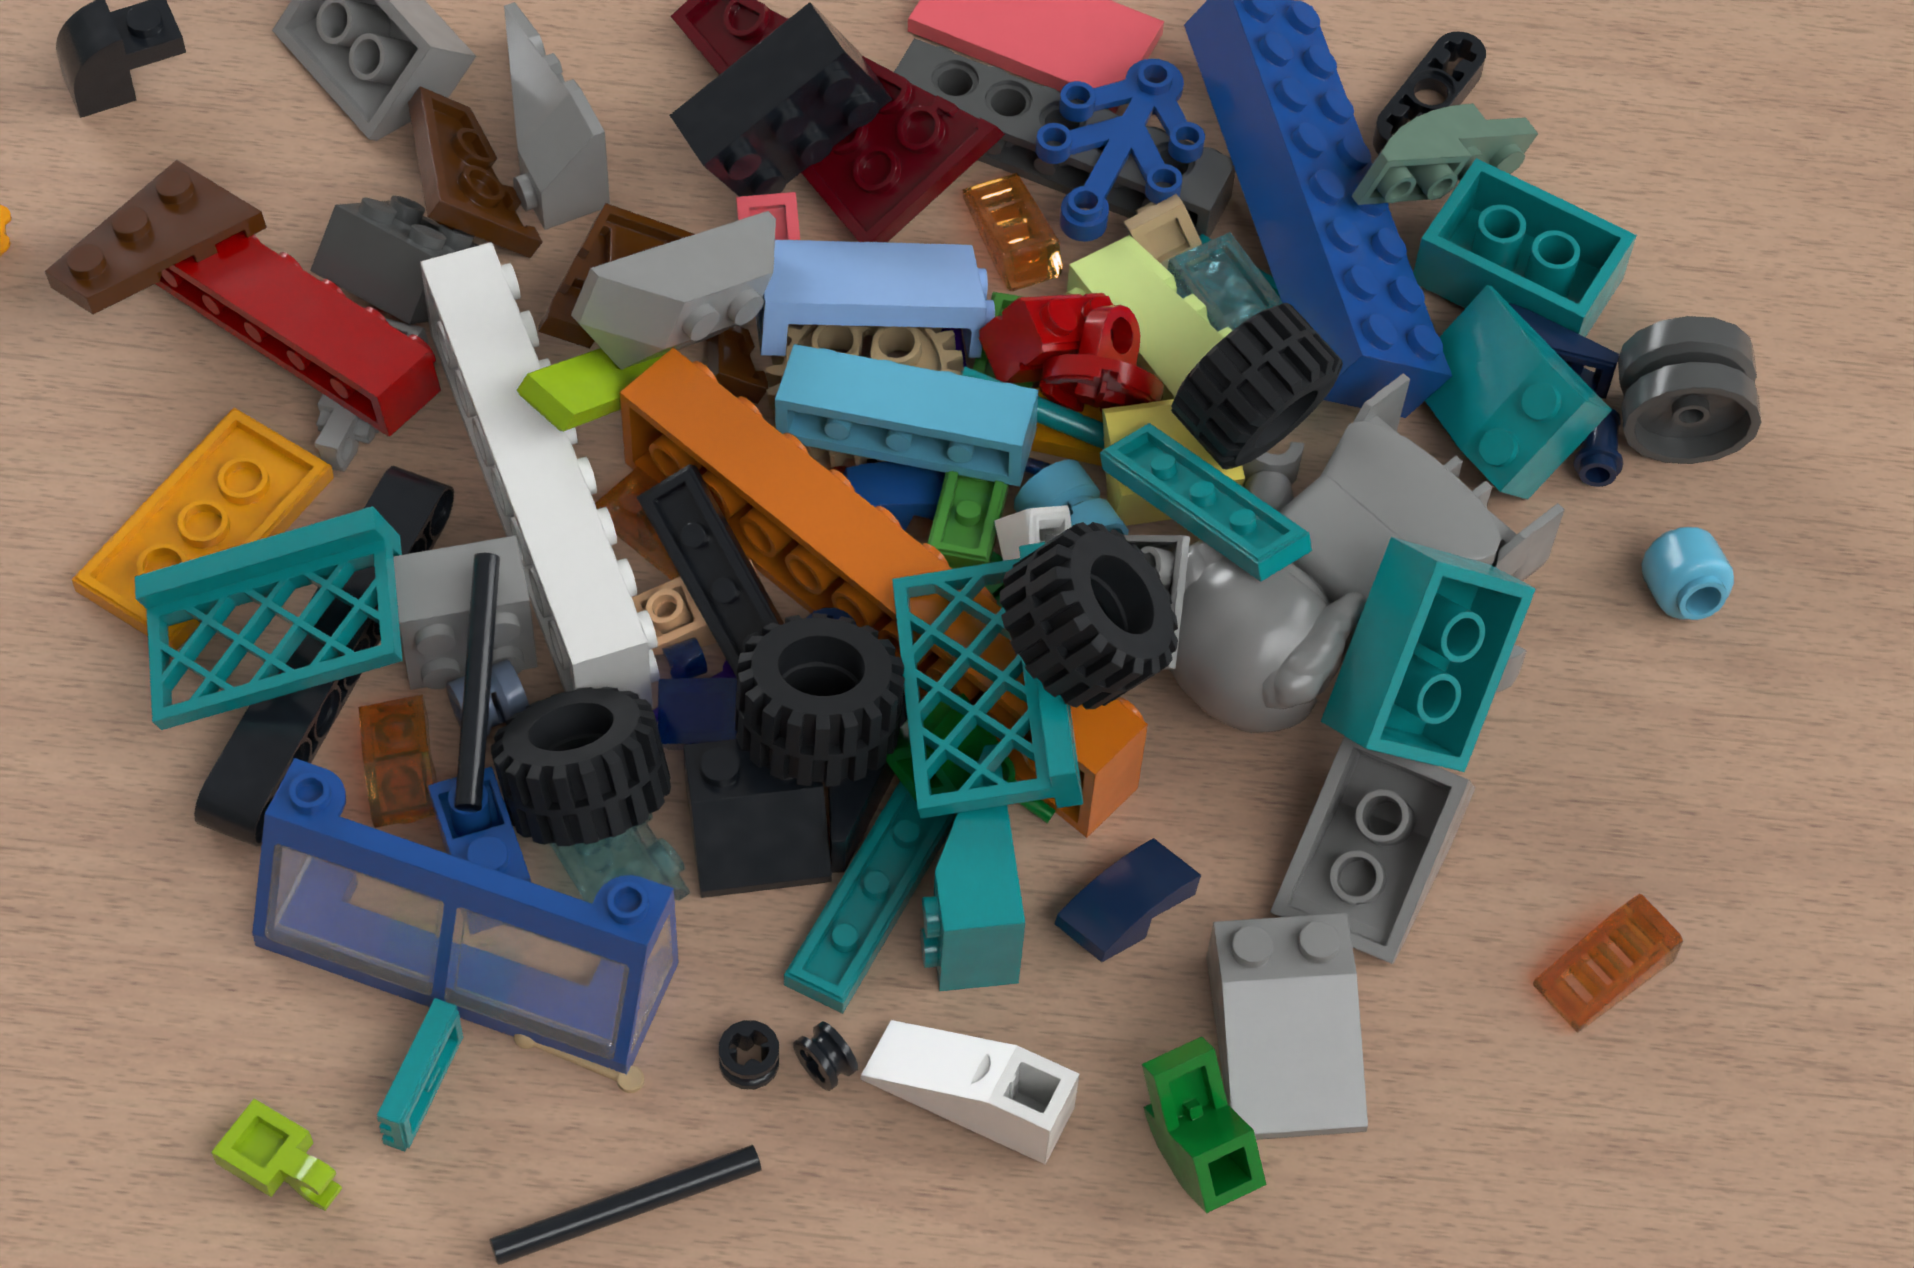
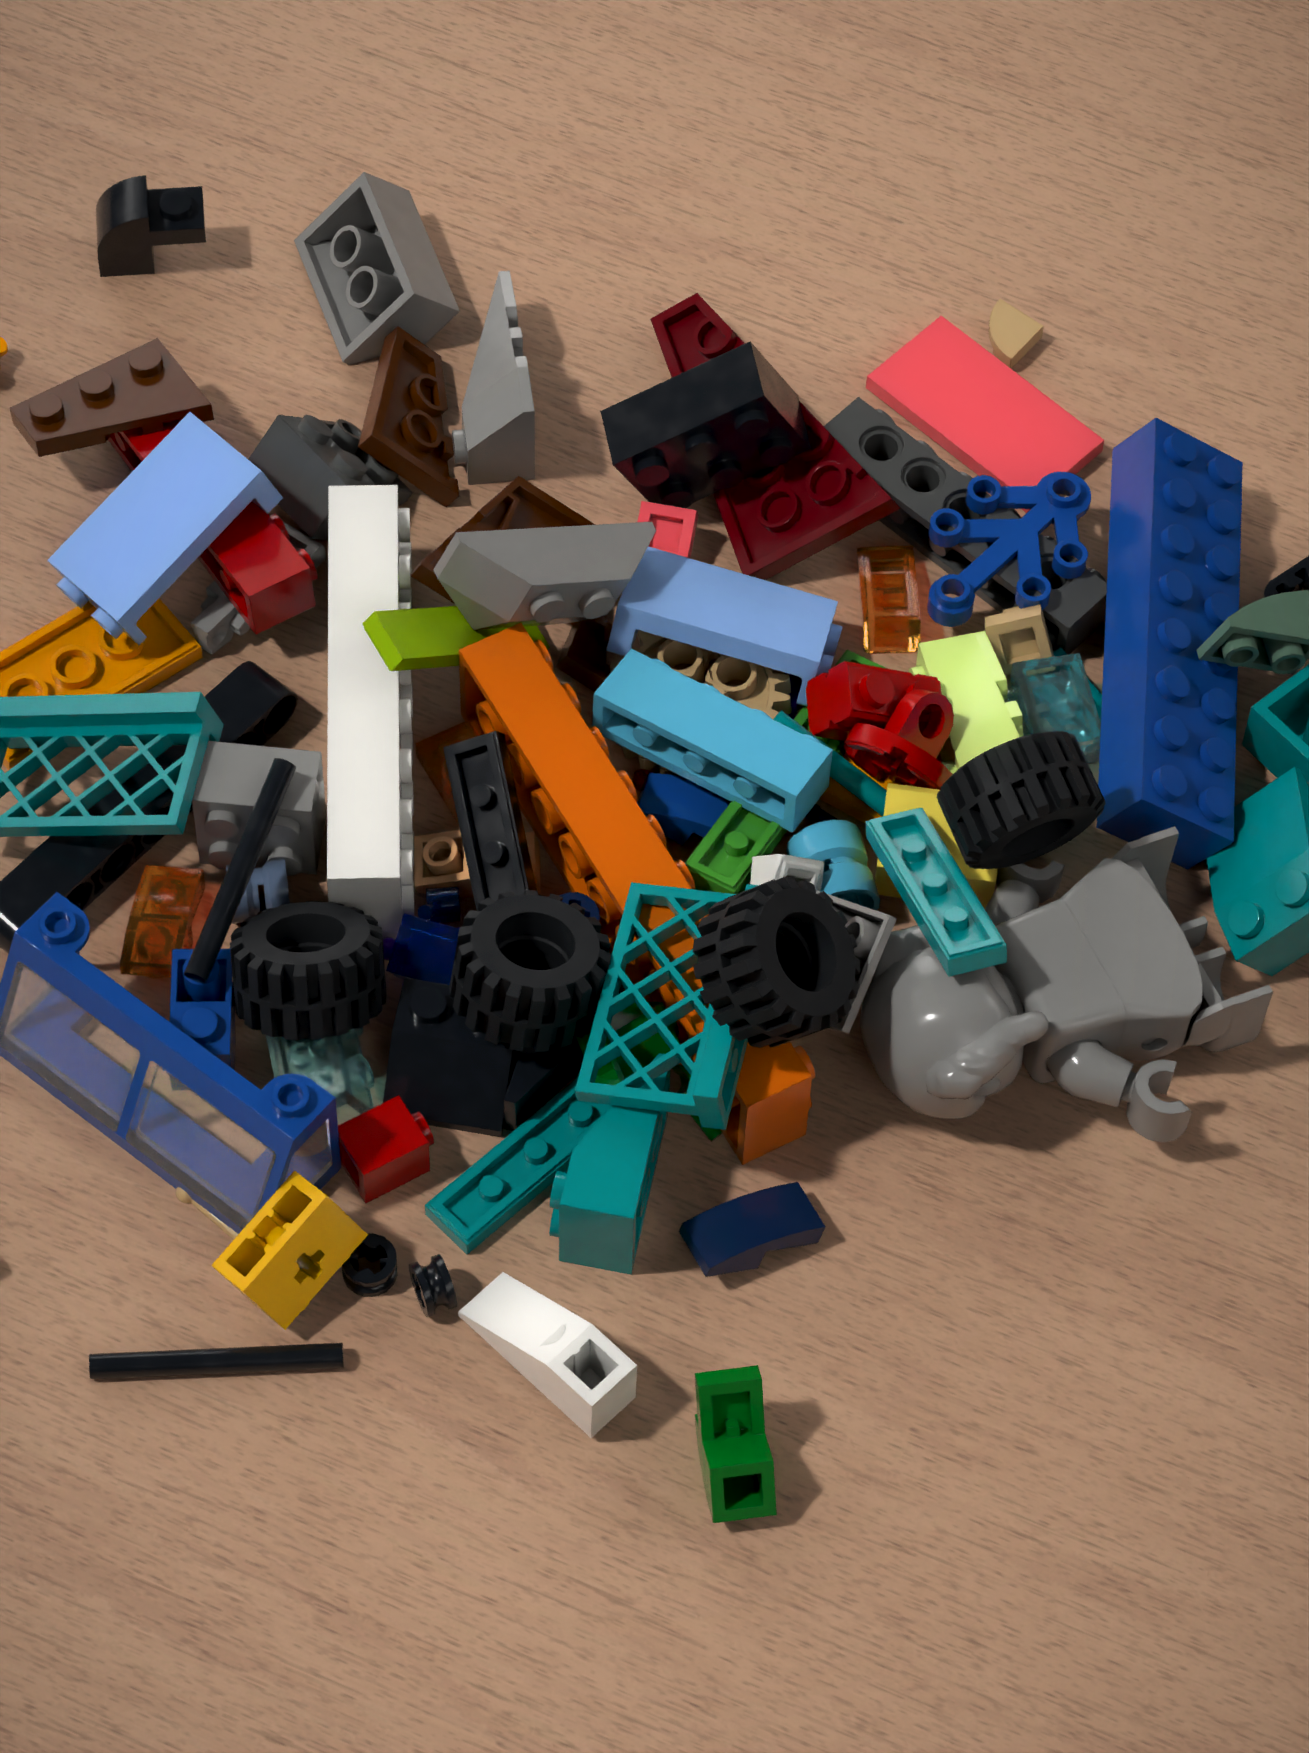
camera: 20 degrees right, 0 degrees up
(252, 350) = (158, 525): none -> light blue panel
(420, 1075) = (81, 1197): teal tile -> none
(669, 1063) = (289, 1250): none -> yellow brick
(722, 928) = (385, 1148): none -> red brick
(1289, 1024) = (851, 1383): light grey slope -> none
(1374, 845) = (992, 1247): light grey slope -> none
(1427, 655) = (1085, 1087): teal brick -> none
(1639, 933) = (1181, 1388): clear orange slope -> none

